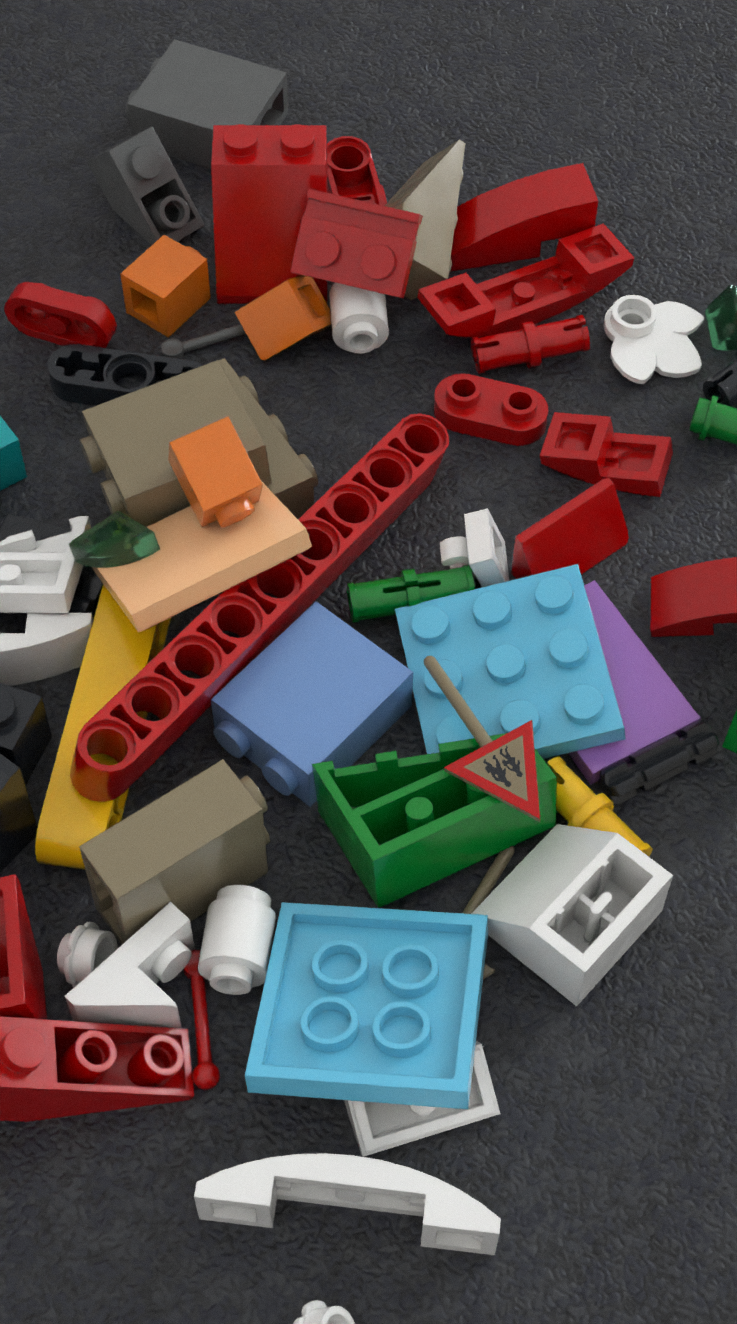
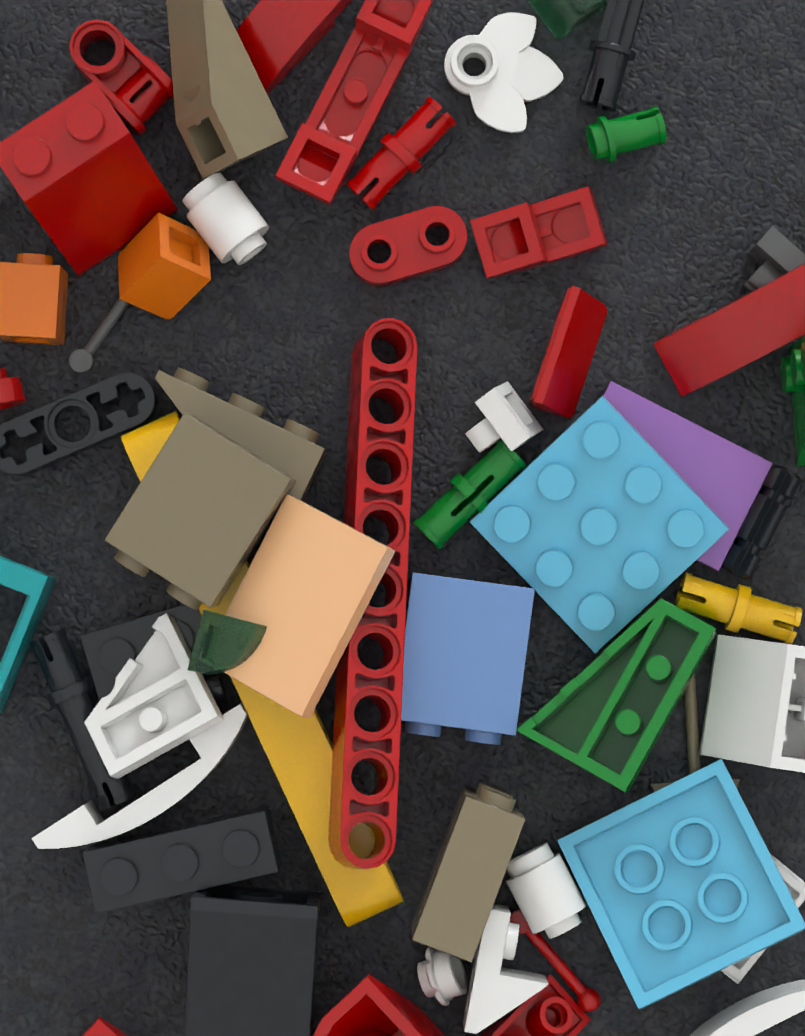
camera: 35 degrees left, 30 degrees up
(216, 473) = (279, 548): orange brick -> none
(356, 243) = (200, 181): red plate -> none
(500, 766) = (668, 649): piece -> none

